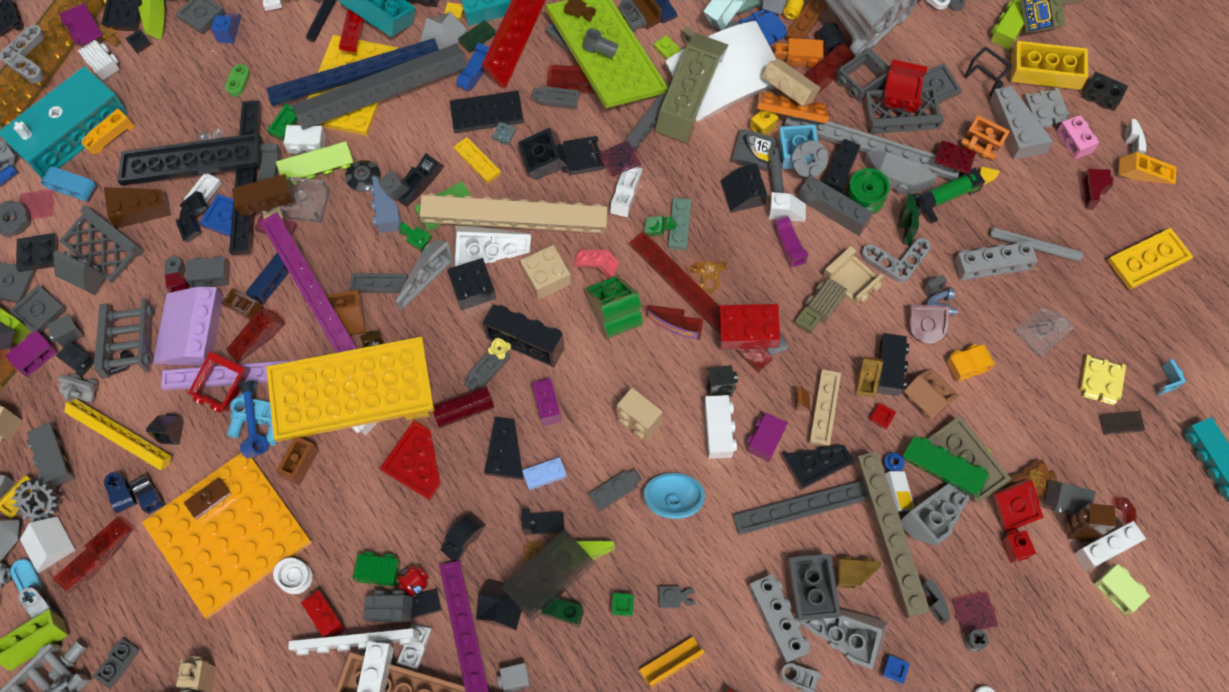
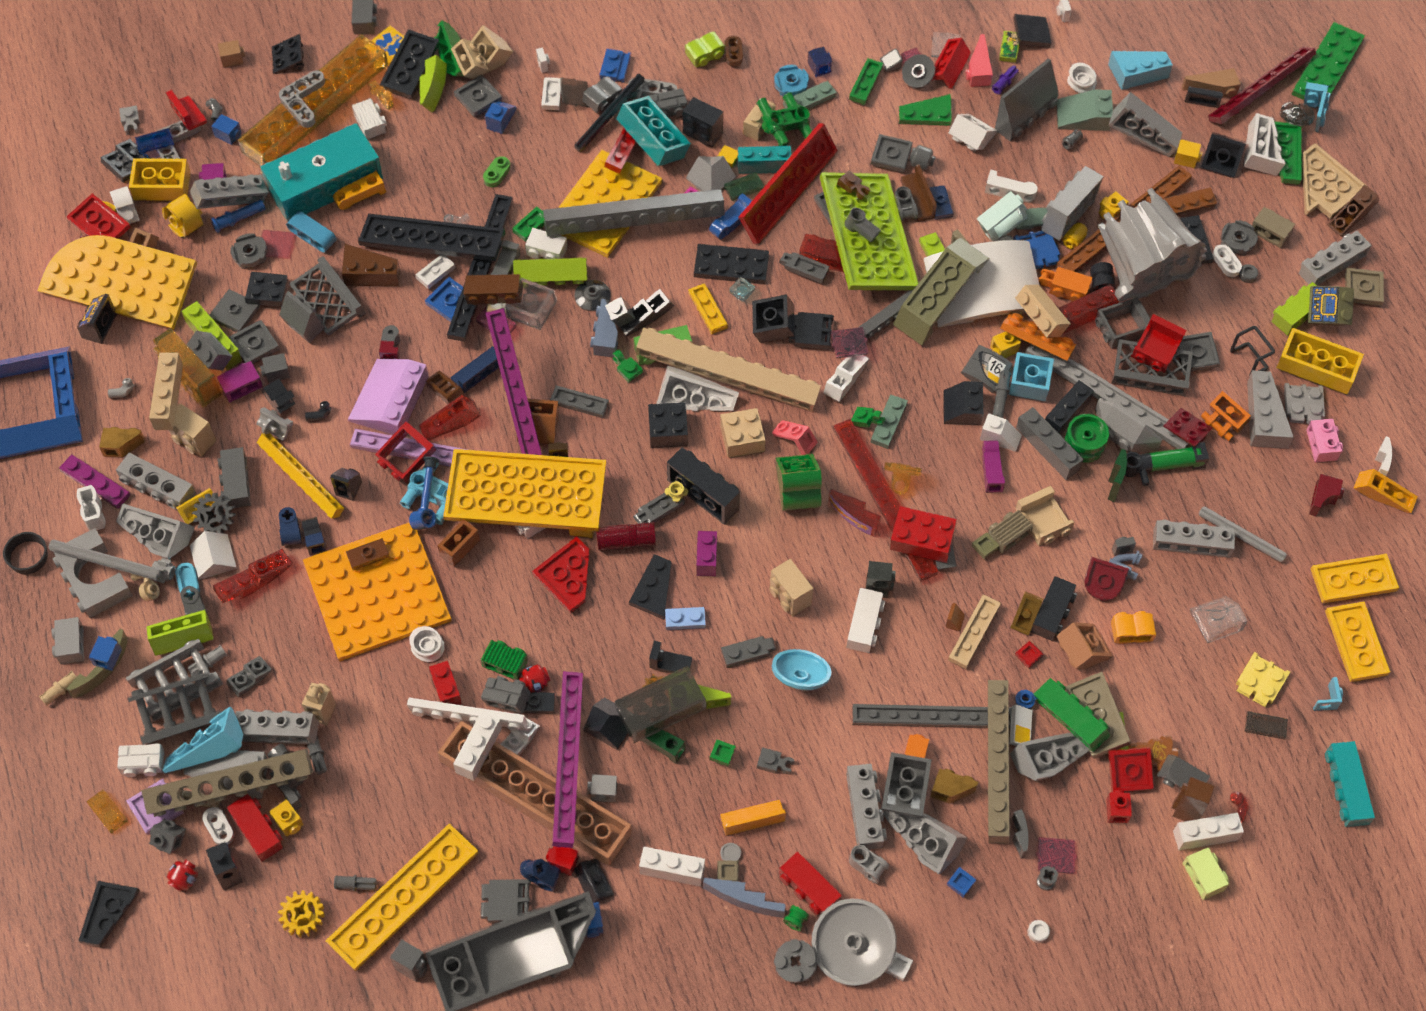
camera: 15 degrees right, 5 degrees down
(80, 24) = (361, 80): magenta brick -> none
(105, 332) = (314, 379): dark grey fence -> none
(138, 41) = (410, 109): black plate -> none
(190, 209) = (413, 297): black plate -> none
(208, 272) = (421, 348): dark grey brick -> none
(347, 73) = (607, 191): dark blue plate -> none
(430, 265) = (632, 397): light grey wedge -> none
(461, 535) = (591, 649): black brick -> none
(767, 436) = (908, 642): magenta brick -> none
(804, 149) = (1033, 380): plate -> none
(809, 543) = (916, 745): none -> orange brick
(816, 465) = (947, 681): black wing -> none
(896, 265) = (1093, 517): light grey beam -> none
(988, 174) = (1218, 454): yellow tile -> none
(1105, 91) = (1371, 399): pearl dark grey brick -> none
(1174, 318) = (1357, 641): none -> yellow plate

